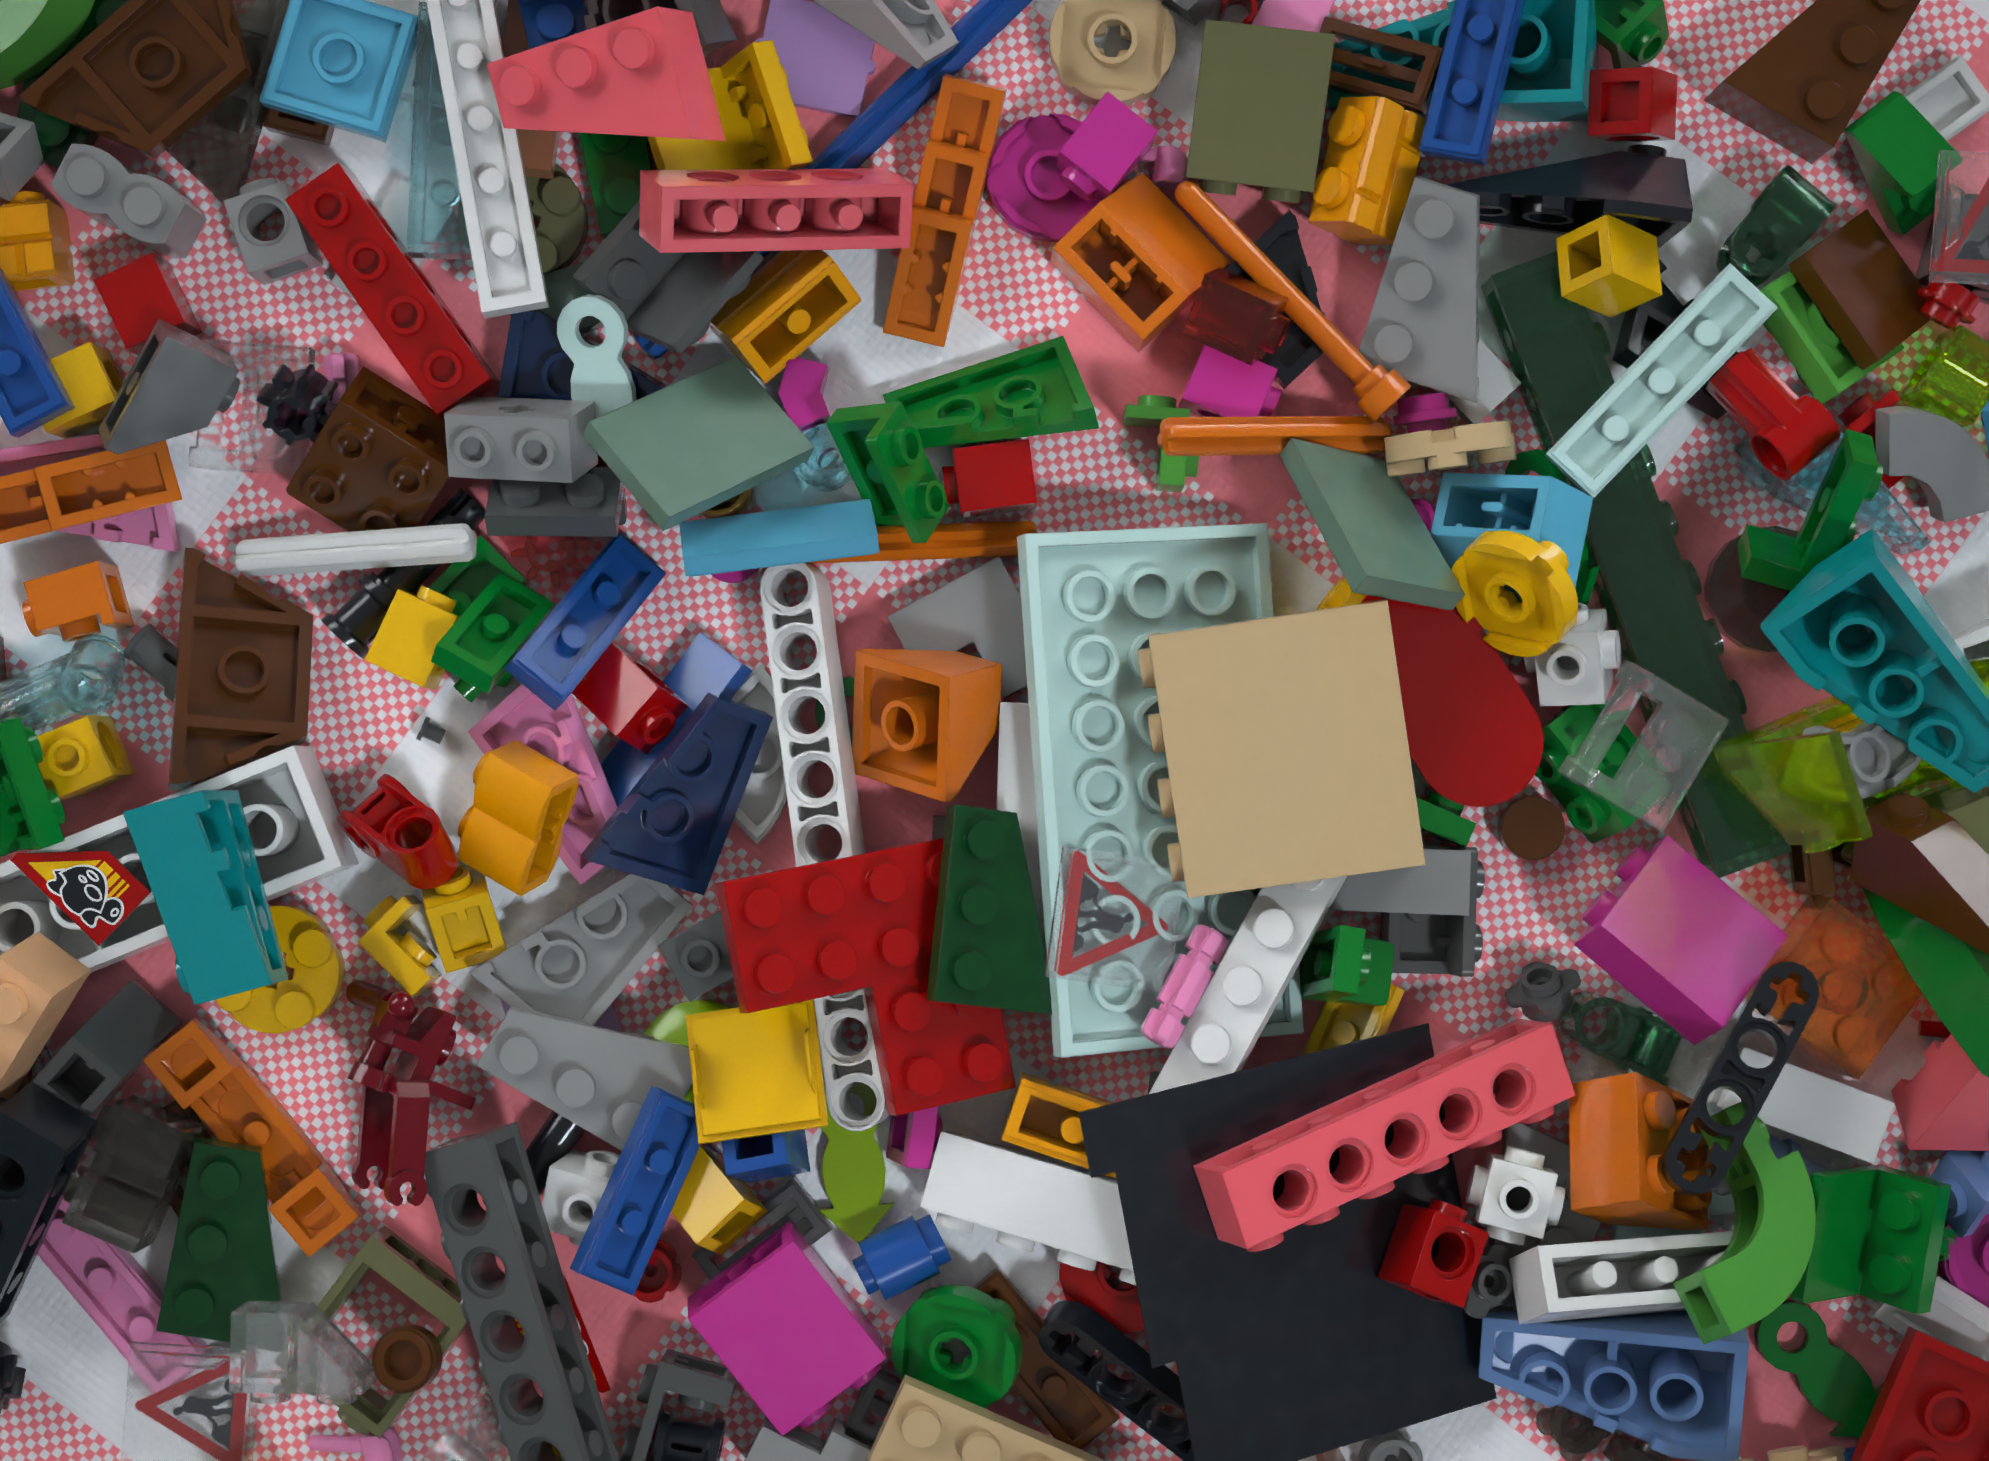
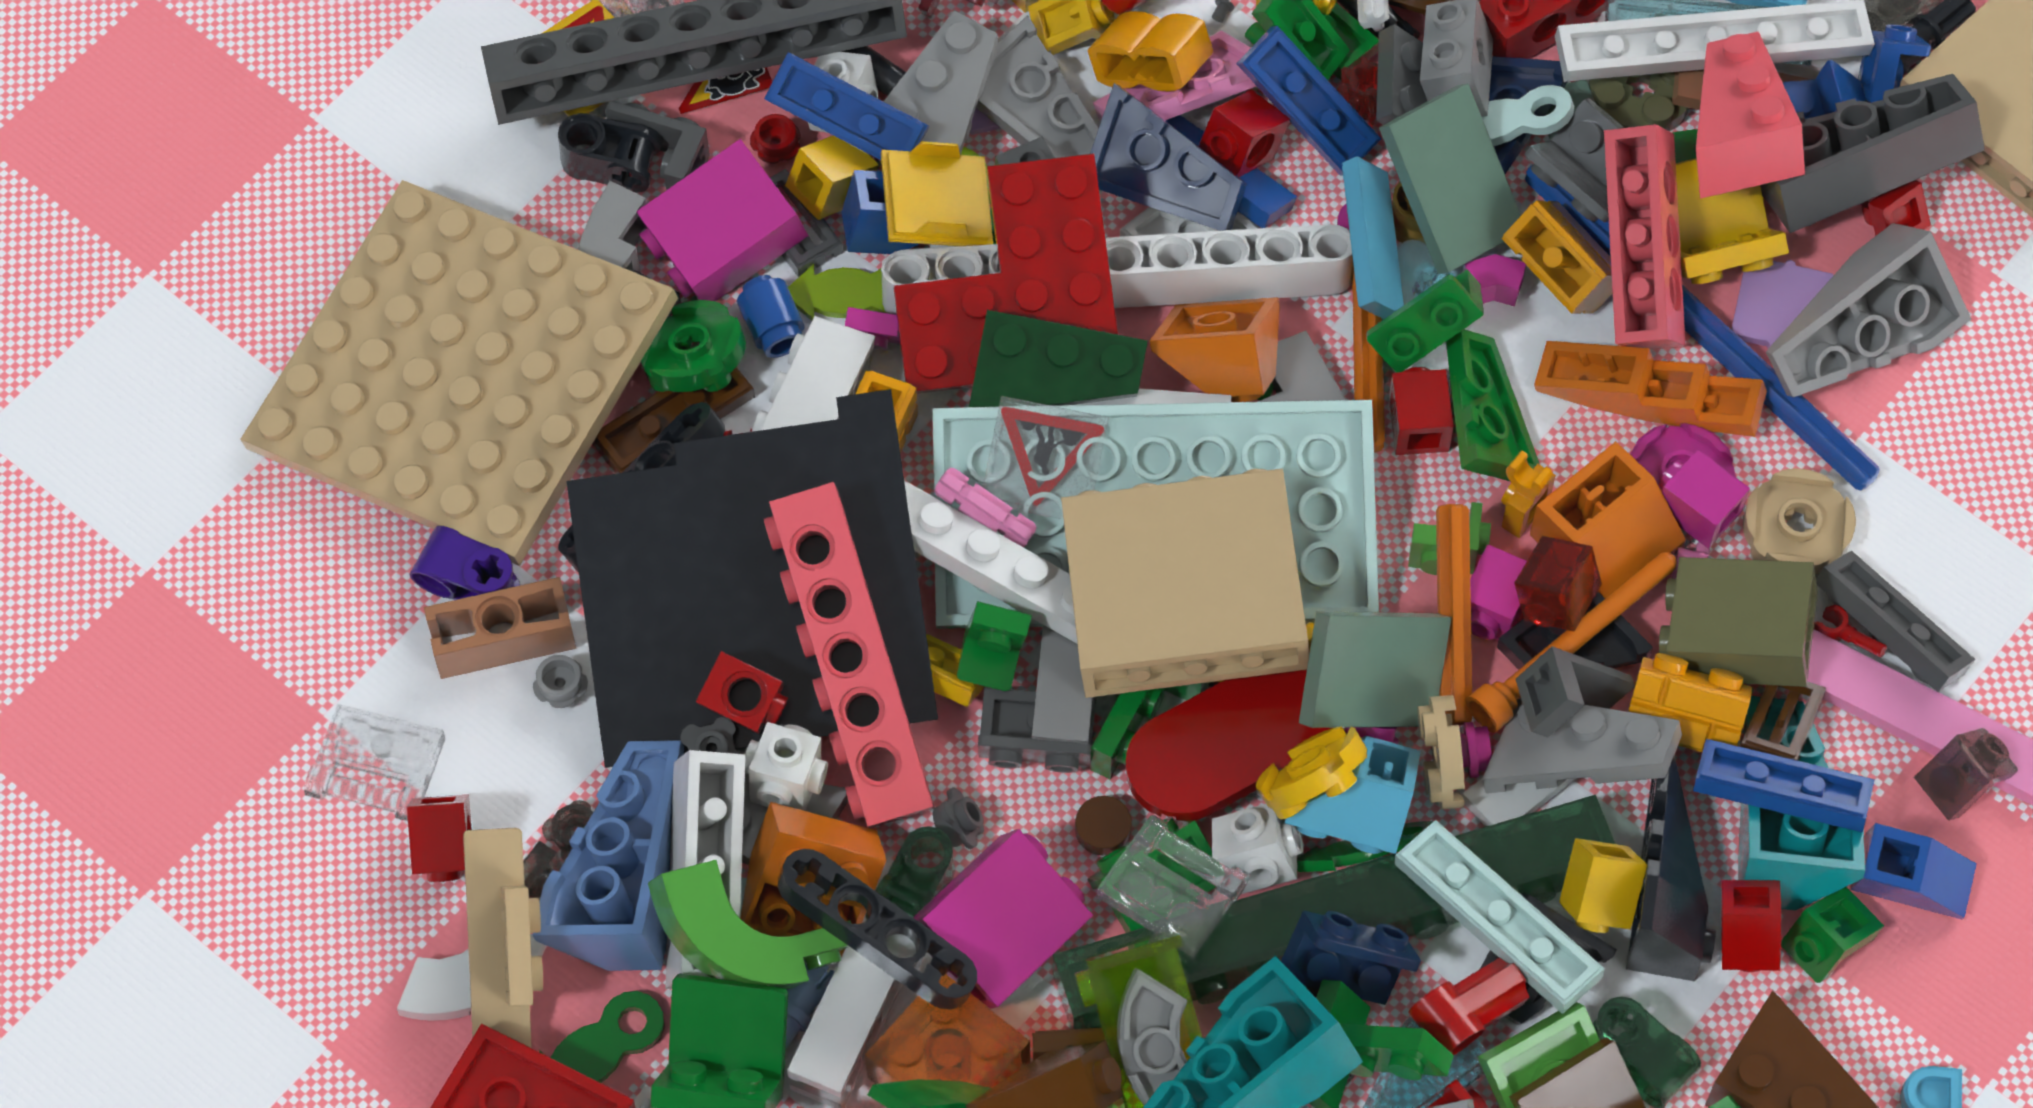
camera: 95 degrees right, 25 degrees down
(1104, 352) = (1523, 494): none -> light orange plate
(1378, 323) = (1562, 684): none -> dark grey bracket
(1705, 546) = (1349, 952): none -> dark blue bracket

